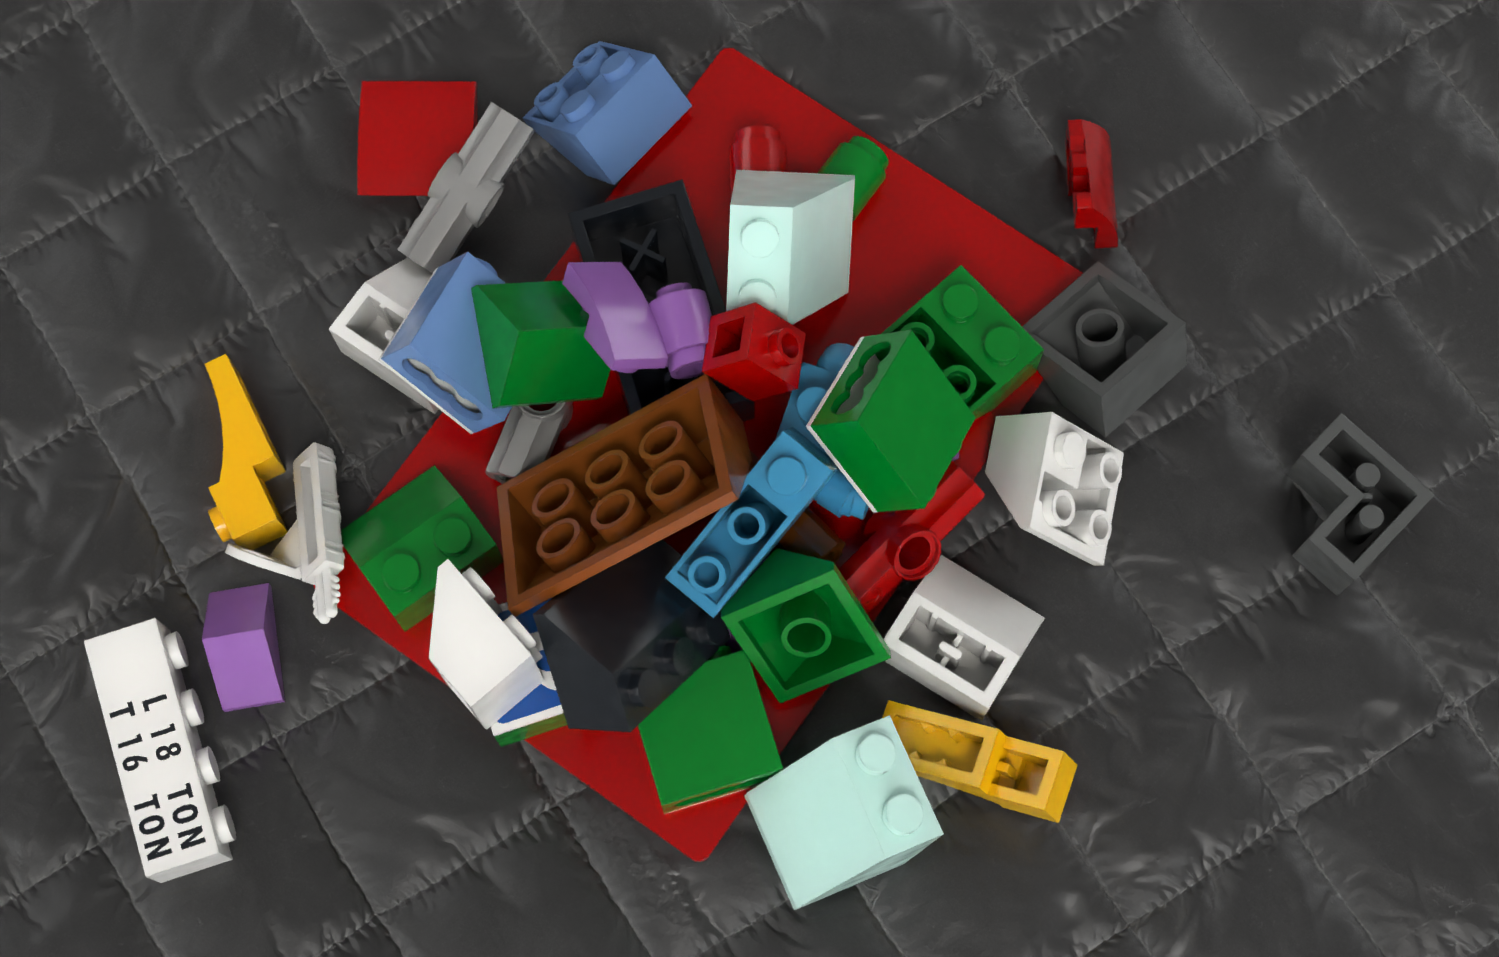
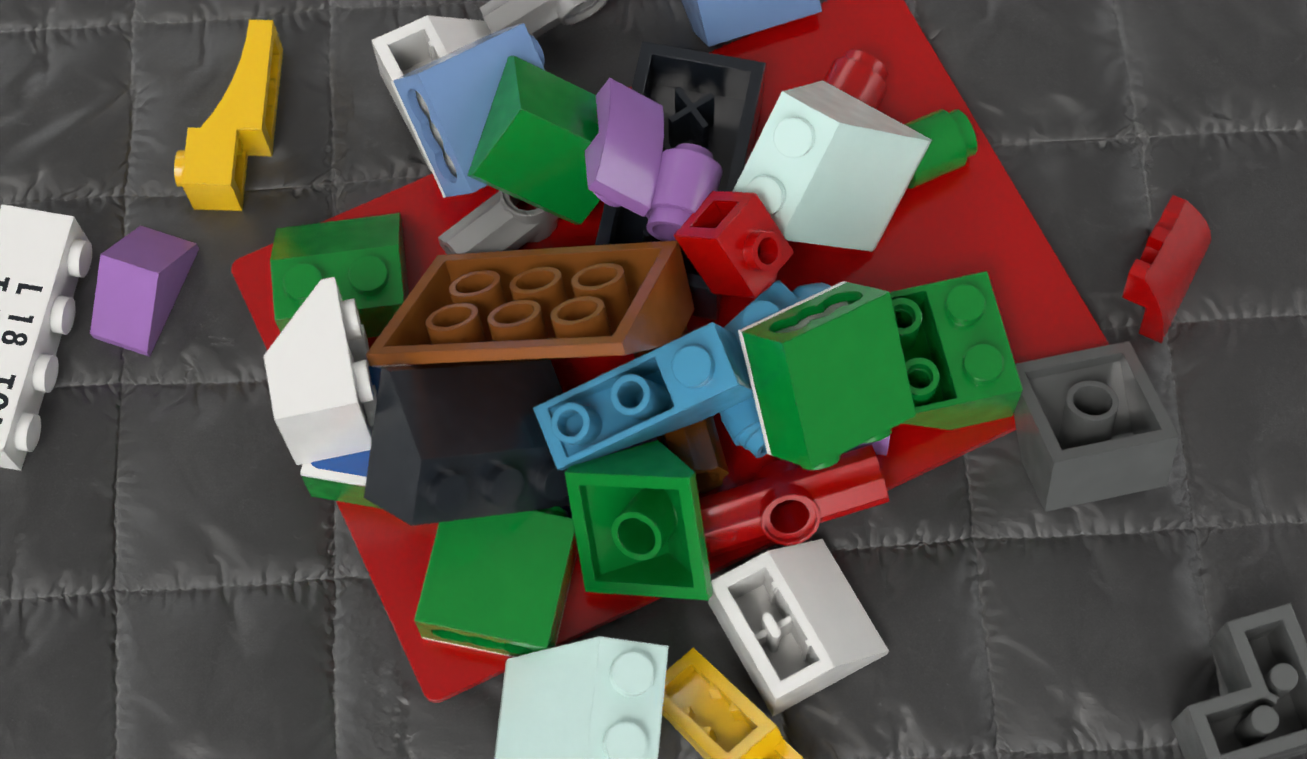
camera: 30 degrees right, 5 degrees down
(314, 541) = (249, 228): white piece -> none
(1056, 481) = (972, 528): white slope -> none

